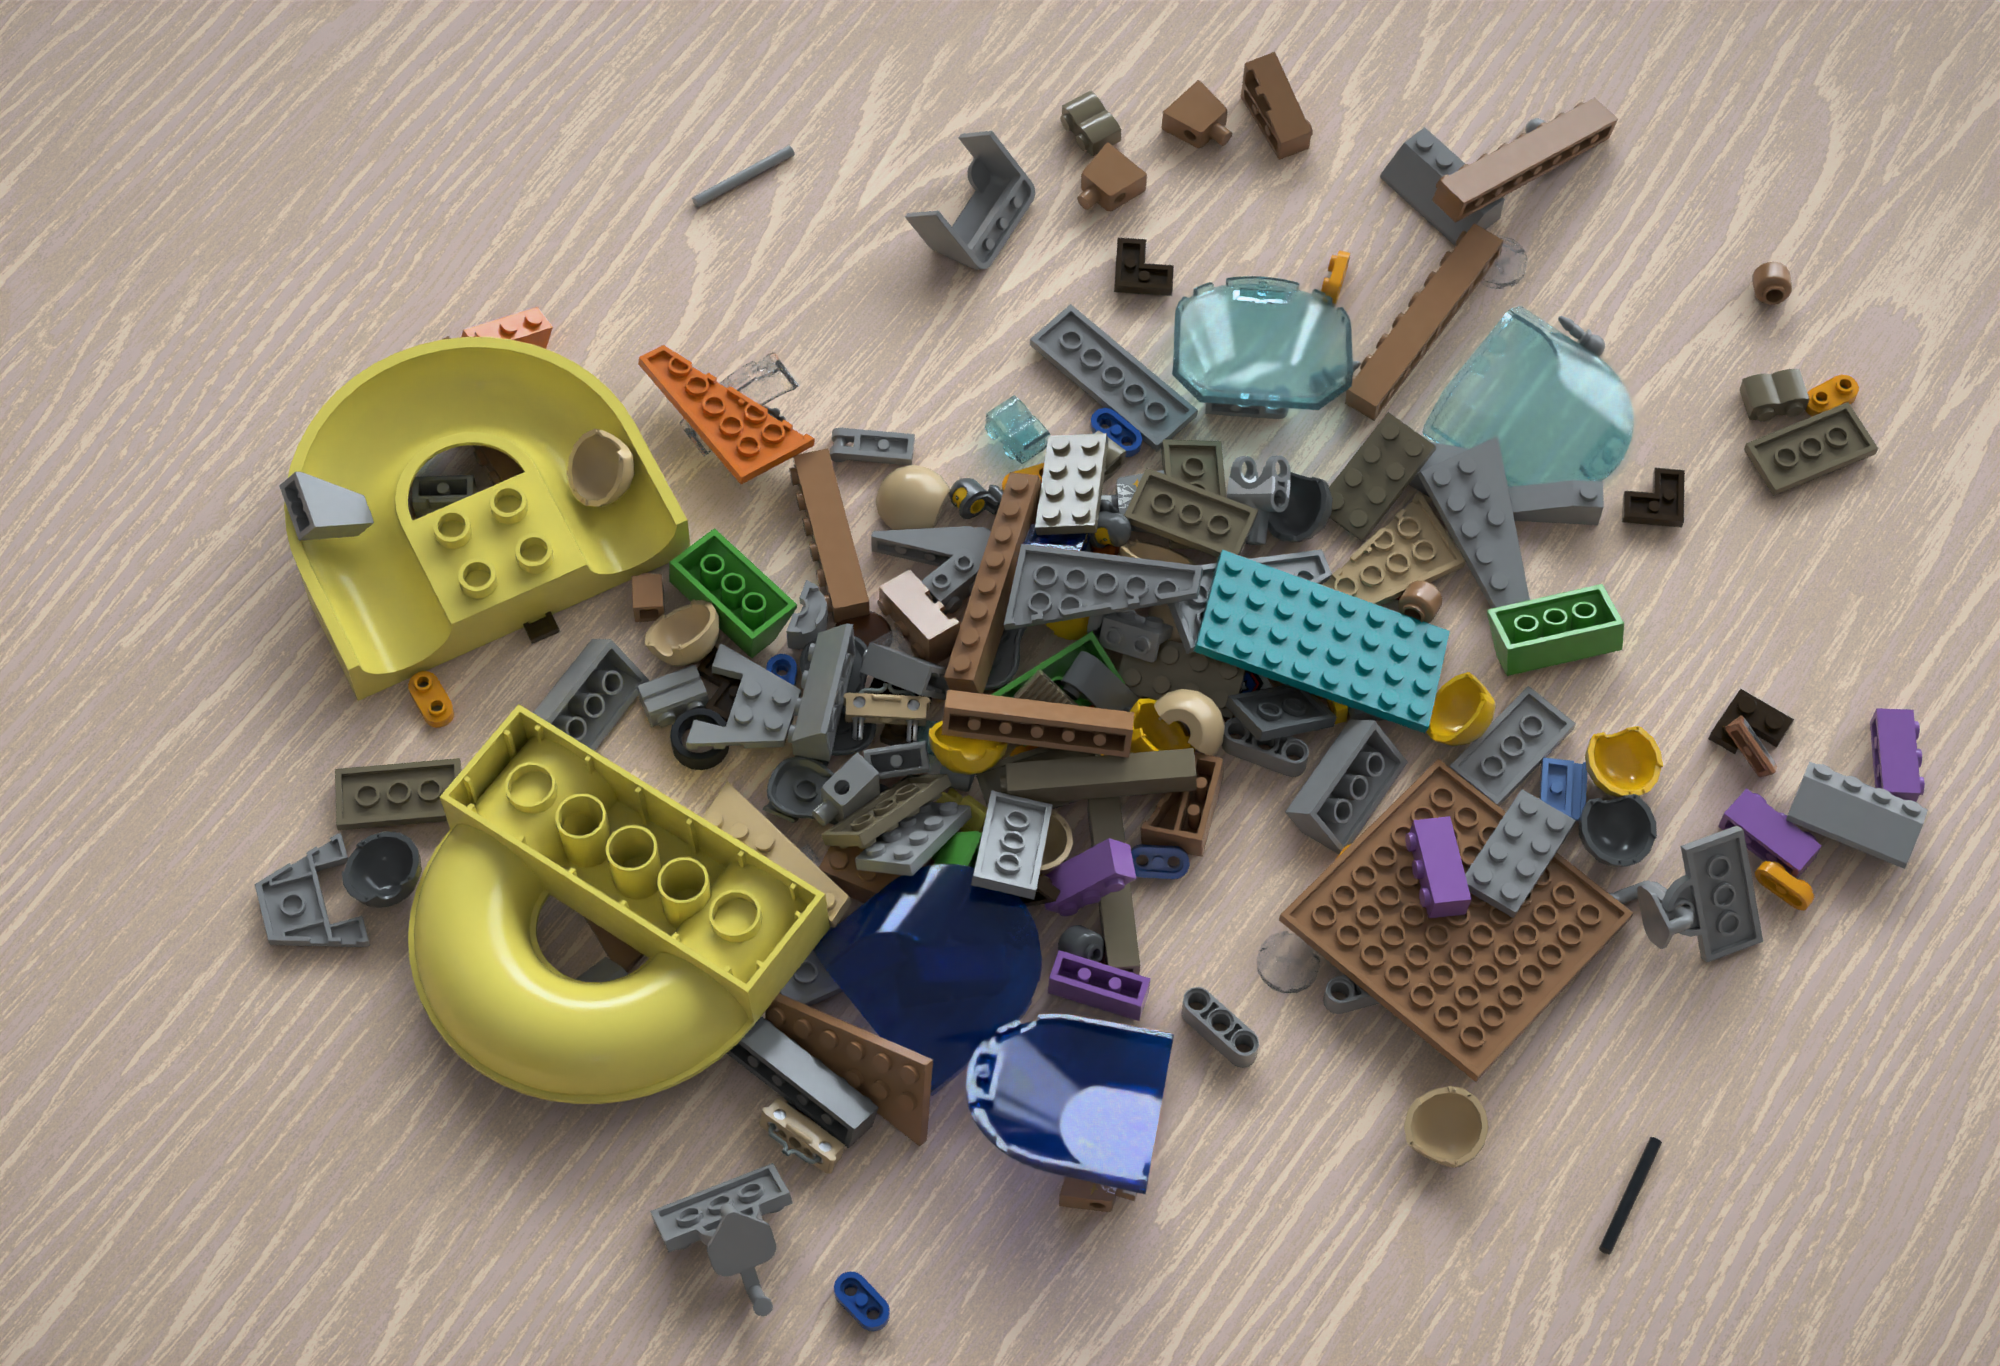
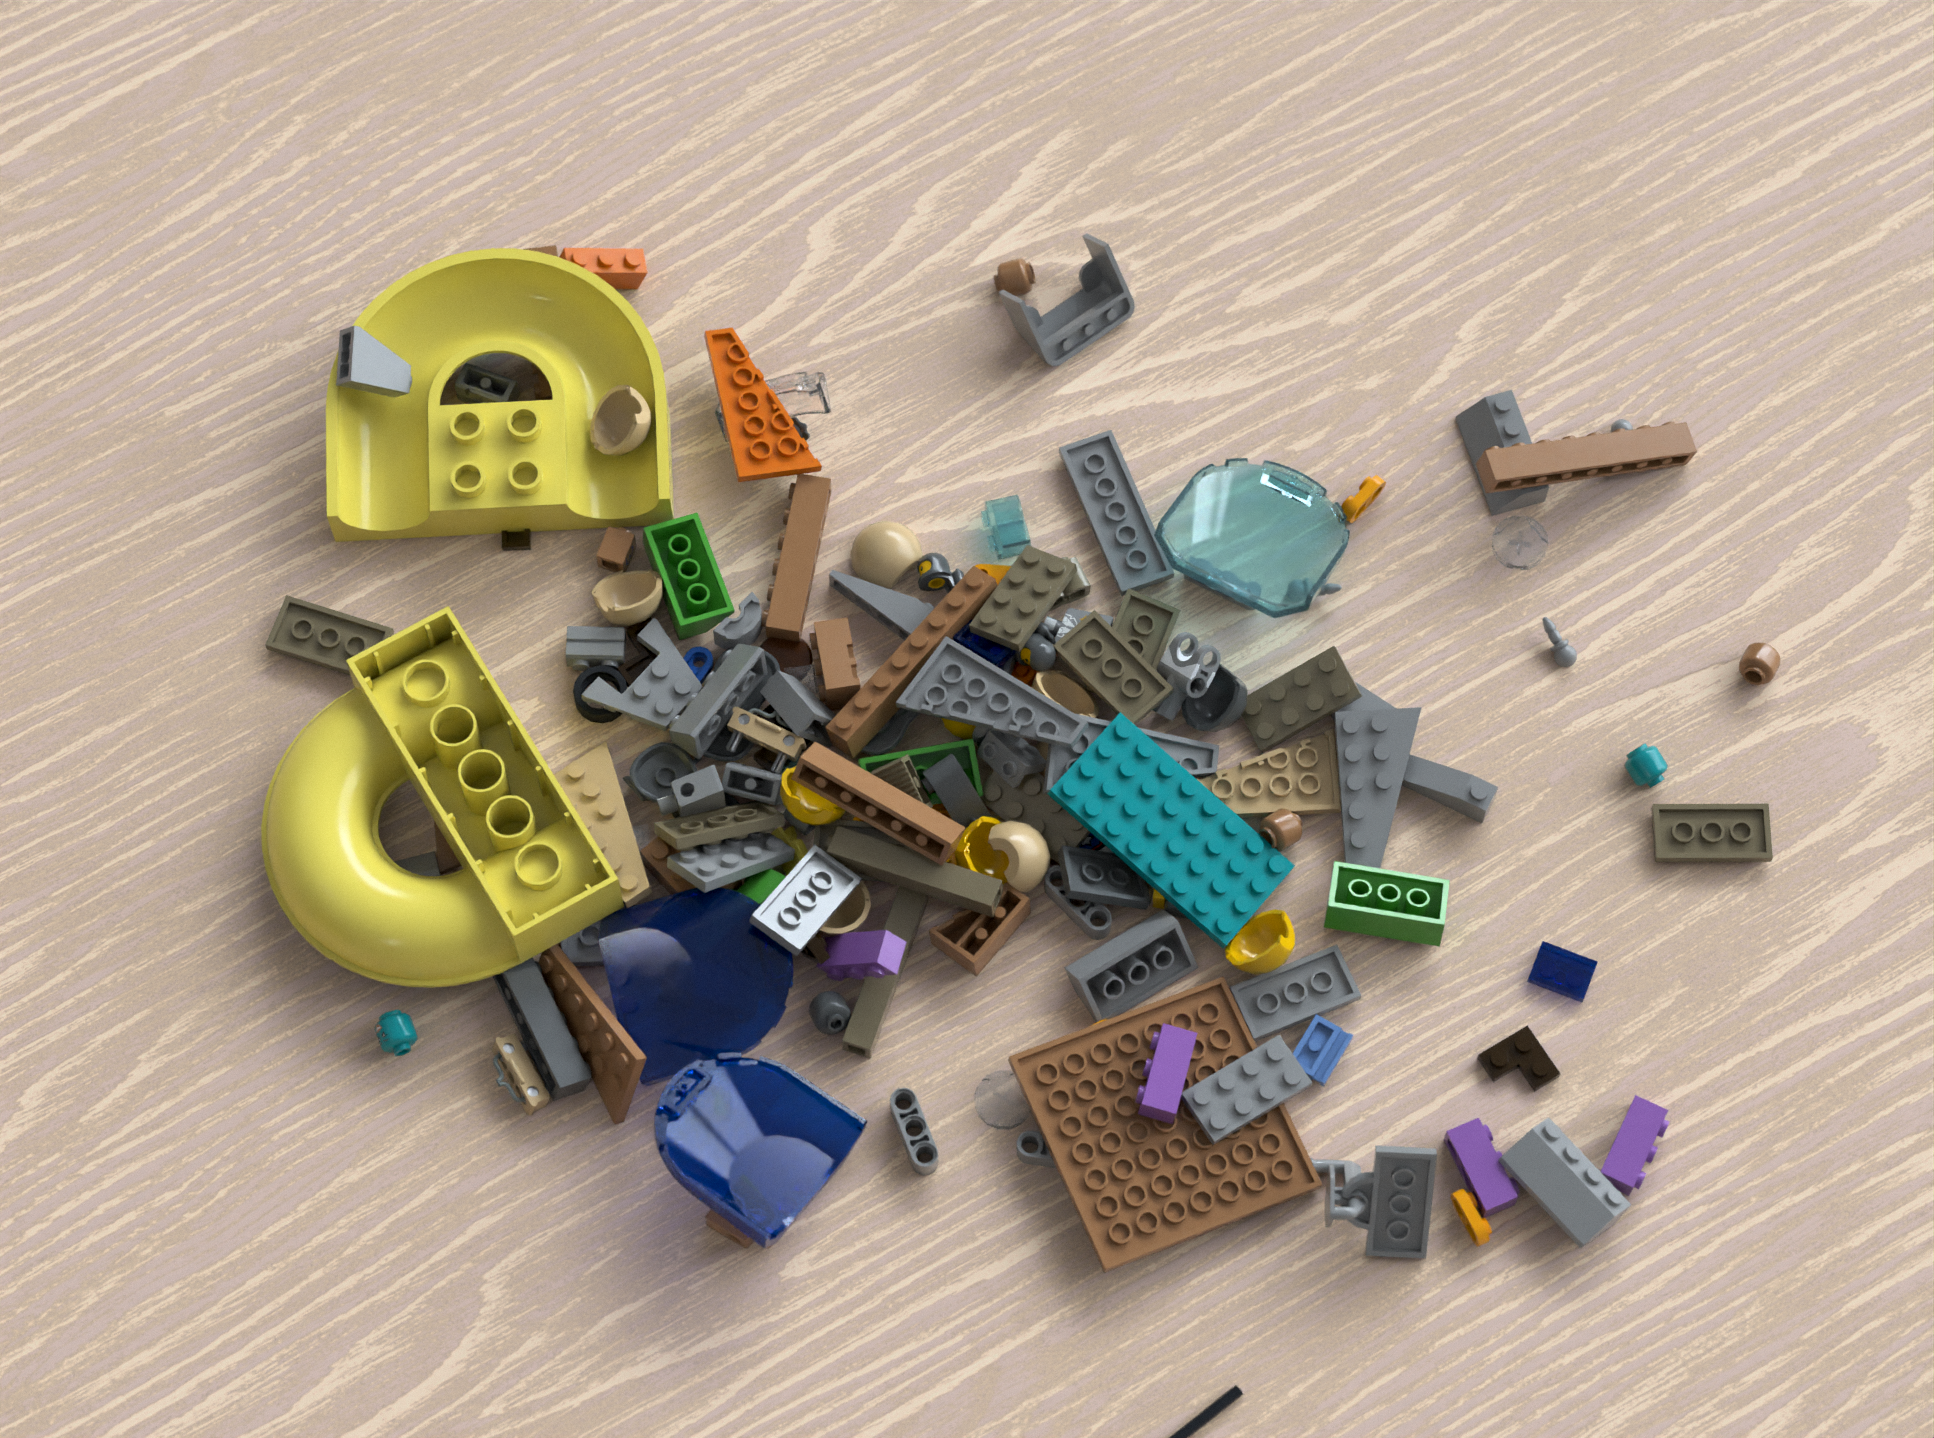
camera: 25 degrees right, 5 degrees up
(295, 904) = (202, 698): light grey wing -> none
(383, 869) = (283, 700): dark grey cylinder -> none
(430, 696) = (395, 564): light orange plate -> none
(592, 693) = (522, 622): light grey slope -> none
(656, 1148) = (396, 1032): none -> teal head
(730, 1225) = (418, 1124): light grey plate -> none
(743, 176) = (884, 194): light grey bar -> none
(863, 1302) = (502, 1235): blue plate -> none
(872, 446) = (874, 491): light grey plate -> none
(907, 199) = (1015, 277): none -> medium nougat head
(953, 580) = (878, 642): light grey bracket -> none
(1090, 123) = (1215, 266): dark tan brick -> none
(1099, 985) = (827, 1052): medium lavender brick -> none
(1111, 180) = (1205, 327): medium nougat torso -> none
(1119, 430) = (1095, 565): blue plate -> none
(1136, 276) = (1183, 423): dark brown plate -> none
(1158, 861) = (935, 966): blue plate -> none
(1197, 117) = (1314, 297): medium nougat torso -> none
(1275, 106) = (1388, 316): medium nougat wedge -> none
(1423, 321) = (1418, 572): medium nougat brick -> none
(1447, 1126) = (1059, 1299): tan cylinder -> none
(1545, 399) = (1485, 691): clear light blue windscreen -> none
(1617, 830) = (1344, 1106): dark grey cylinder -> none
(1624, 762) = (1382, 1048): yellow cylinder -> none
(1662, 506) = (1546, 830): dark brown plate -> none
(1720, 412) = (1646, 765): none -> teal head
(1744, 627) = (1562, 971): none -> clear blue plate
(1751, 747) = (1508, 1082): nougat slope -> none
(1774, 394) = (1704, 769): dark tan brick -> none
(1832, 394) = (1760, 790): light orange plate -> none

